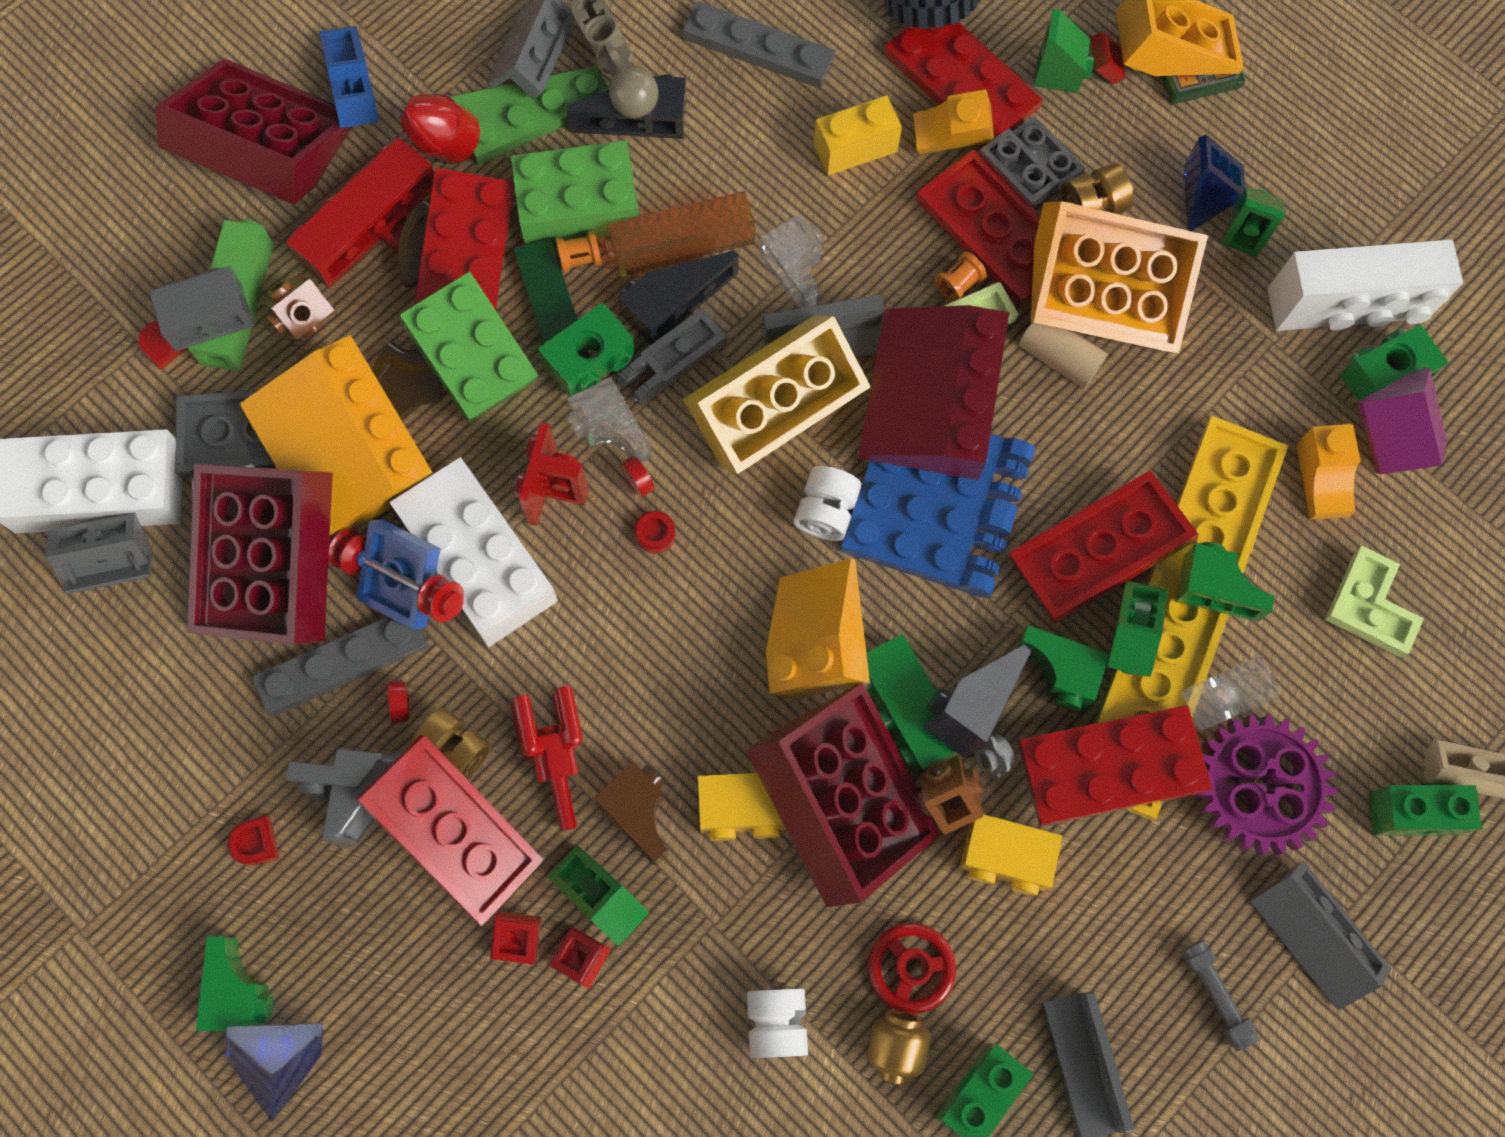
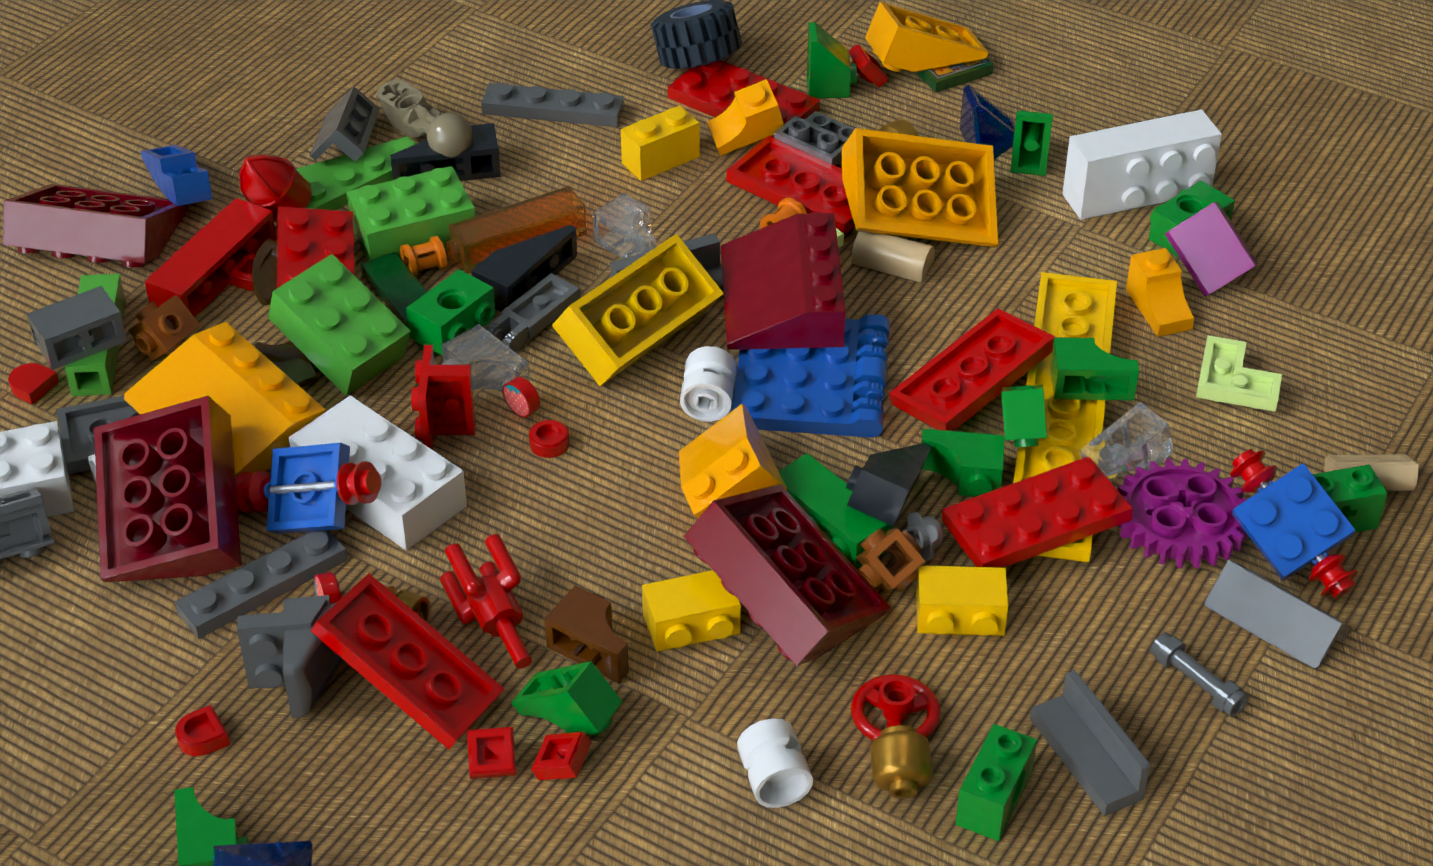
camera: 10 degrees left, 30 degrees down
(1372, 844) = (1293, 522): none -> blue plate

